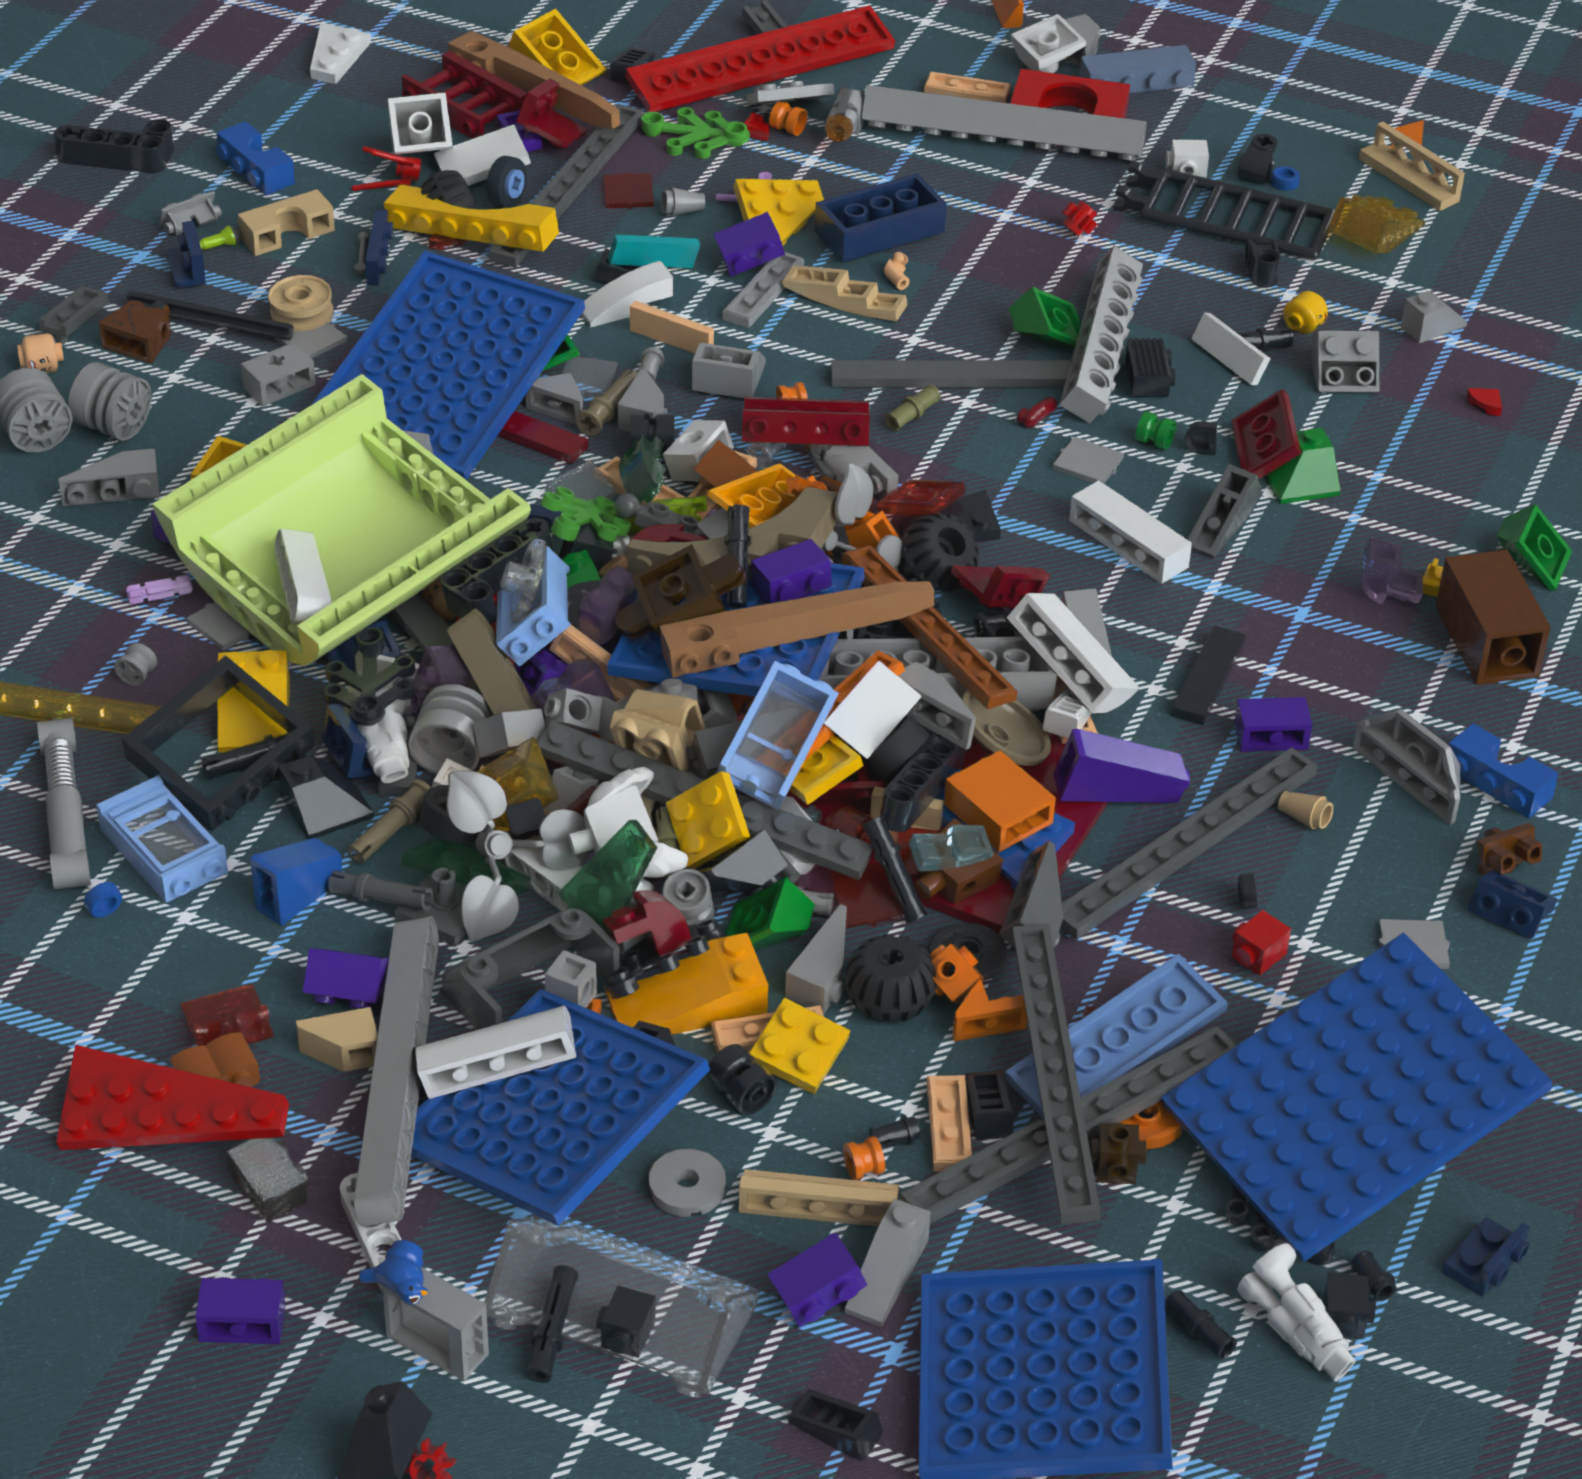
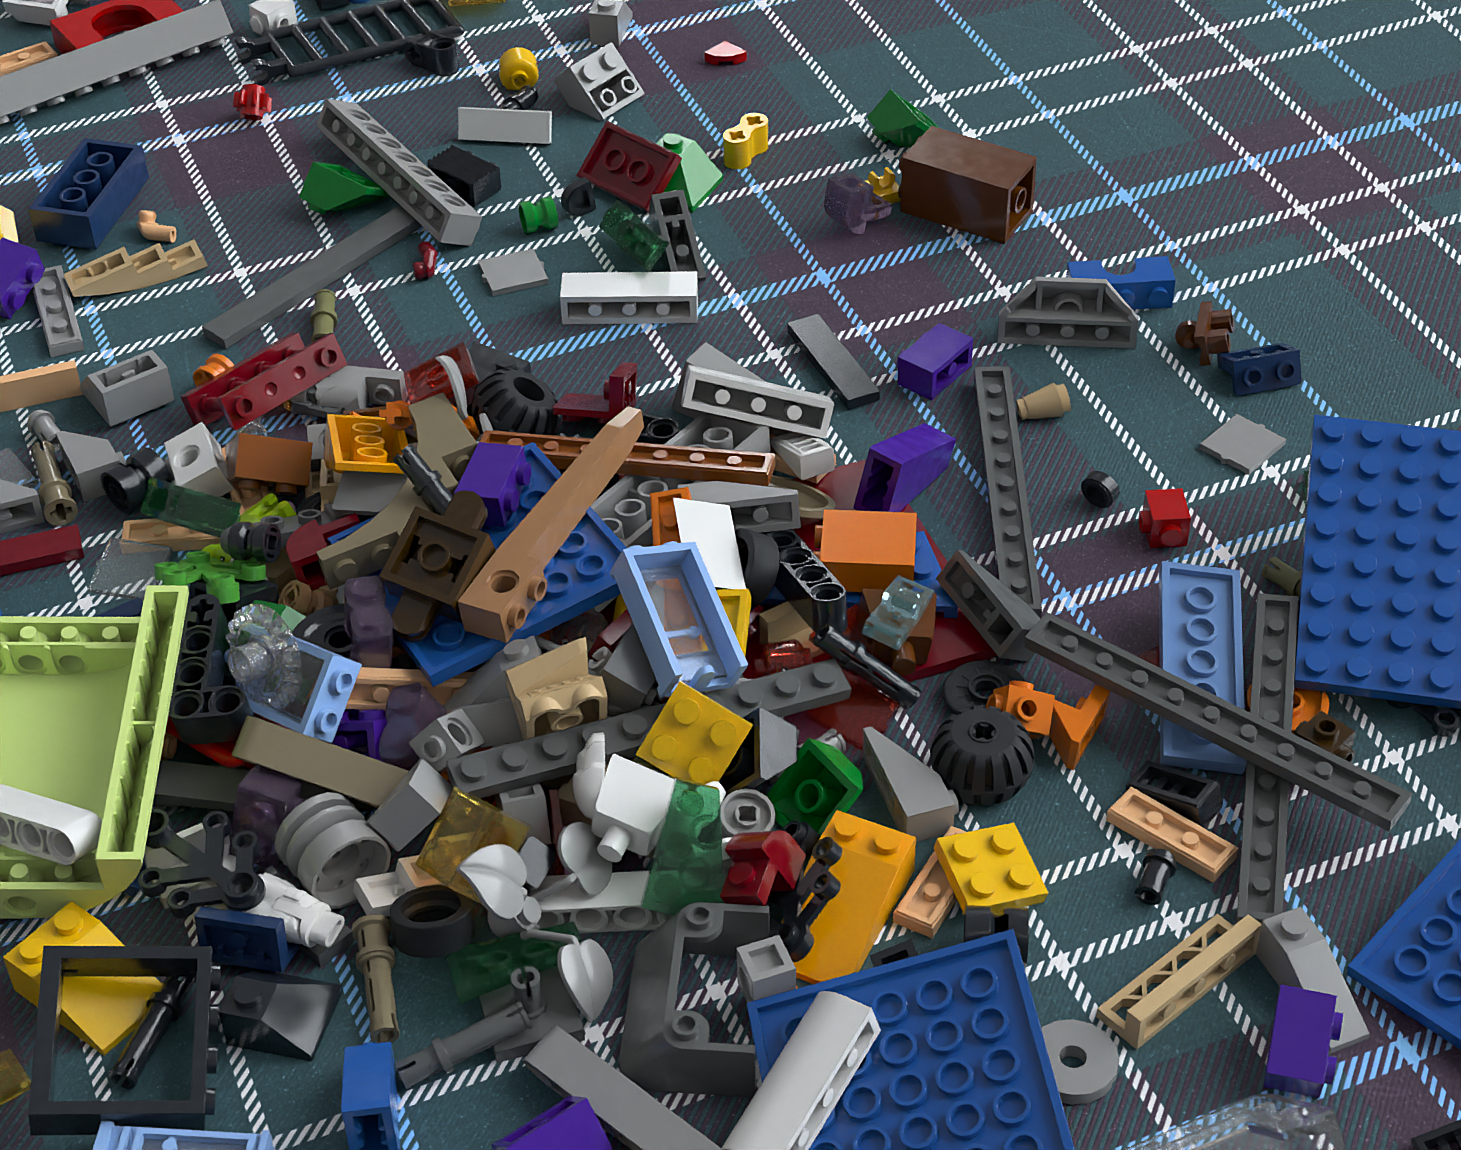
camera: 45 degrees left, 0 degrees up
(625, 512) = (256, 542): none -> black wheel
(864, 1158) = (1170, 915): orange wheel -> none
(1187, 491) = (634, 235): none -> clear green slope
(1389, 475) = (745, 141): none -> yellow axle

